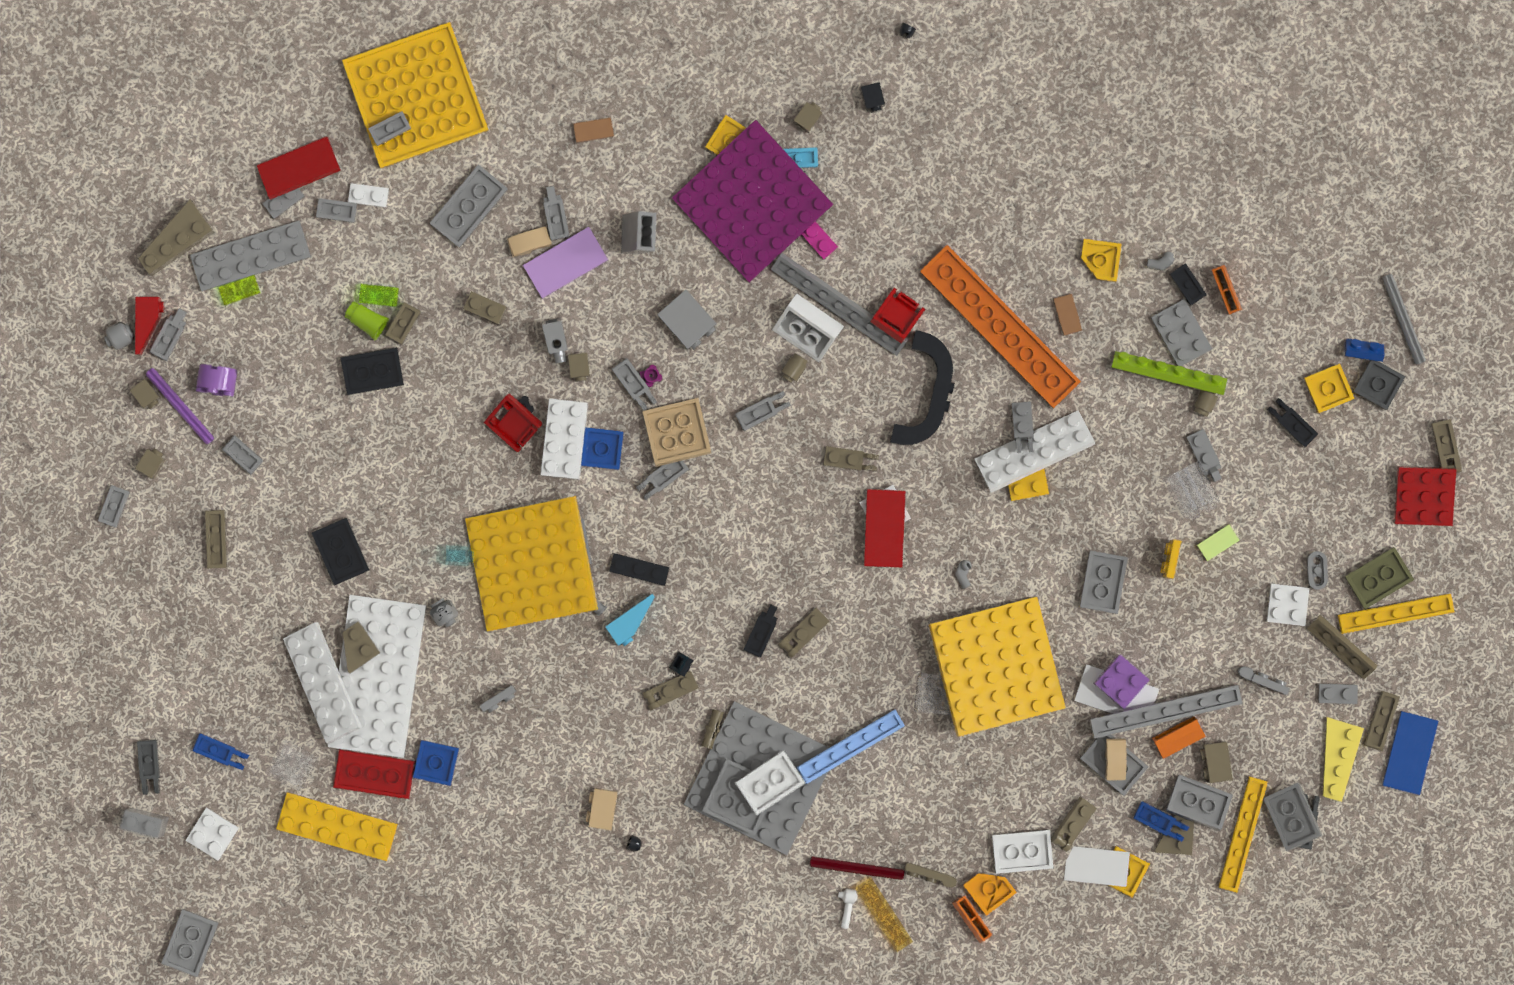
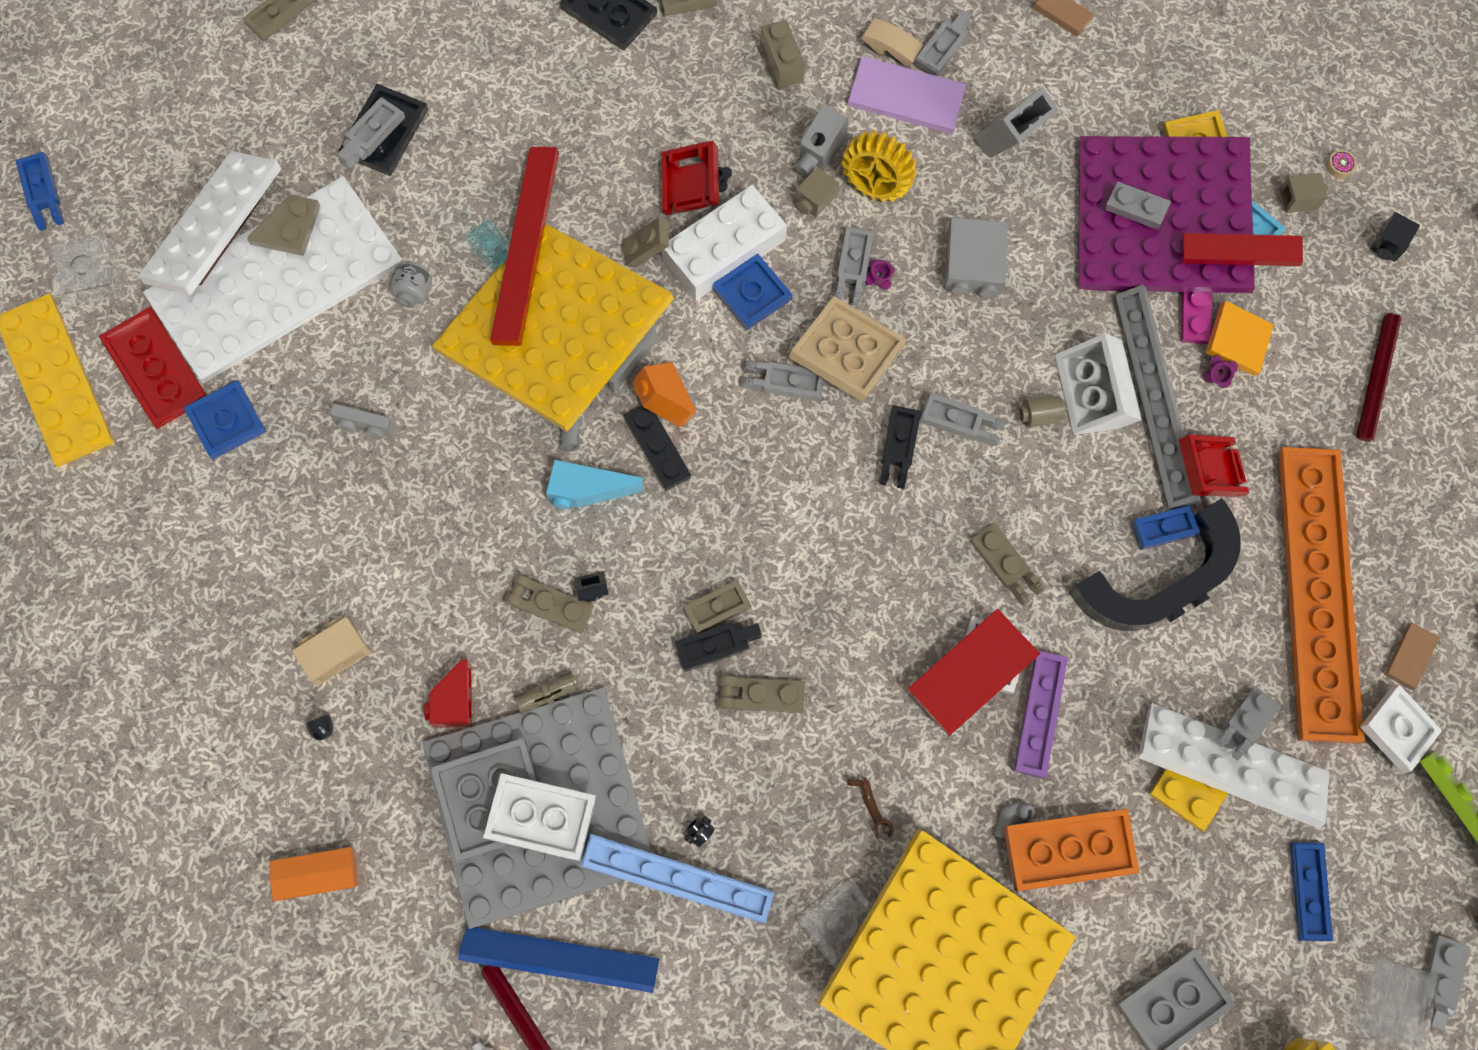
camera: 45 degrees right, 15 degrees down
(341, 561) = (369, 132): none -> light grey hinge
(476, 539) = (524, 247): none -> red tile
(530, 479) = (646, 242): none -> dark tan plate
(598, 325) = (879, 166): none -> yellow gear
(617, 543) = (664, 393): none -> orange slope
(676, 774) = (451, 699): none -> red slope
(700, 902) = (313, 874): none -> orange piece
(738, 215) = (1138, 205): none -> light grey plate
(744, 614) = (717, 607): none -> dark tan plate
(746, 452) = (899, 443): none -> black hinge
(809, 192) = (1242, 249): none -> red tile
(810, 76) = (1341, 164): none -> tile
(836, 828) = (559, 959): none -> blue tile
(838, 717) = (699, 831): none -> black plate
(849, 232) = (1240, 338): none -> light orange tile
(856, 264) = (1223, 379): none -> magenta plate
(898, 630) = (871, 805): none -> reddish brown piece
(903, 367) = (1165, 527): none -> blue plate
(931, 182) = (1379, 377): none -> dark red axle
(931, 514) = (1040, 715): none -> medium lavender plate
(1000, 562) = (1071, 849): none -> orange plate
(1091, 358) = (1401, 729): none -> white plate
(1117, 472) = (1311, 892): none -> blue tile

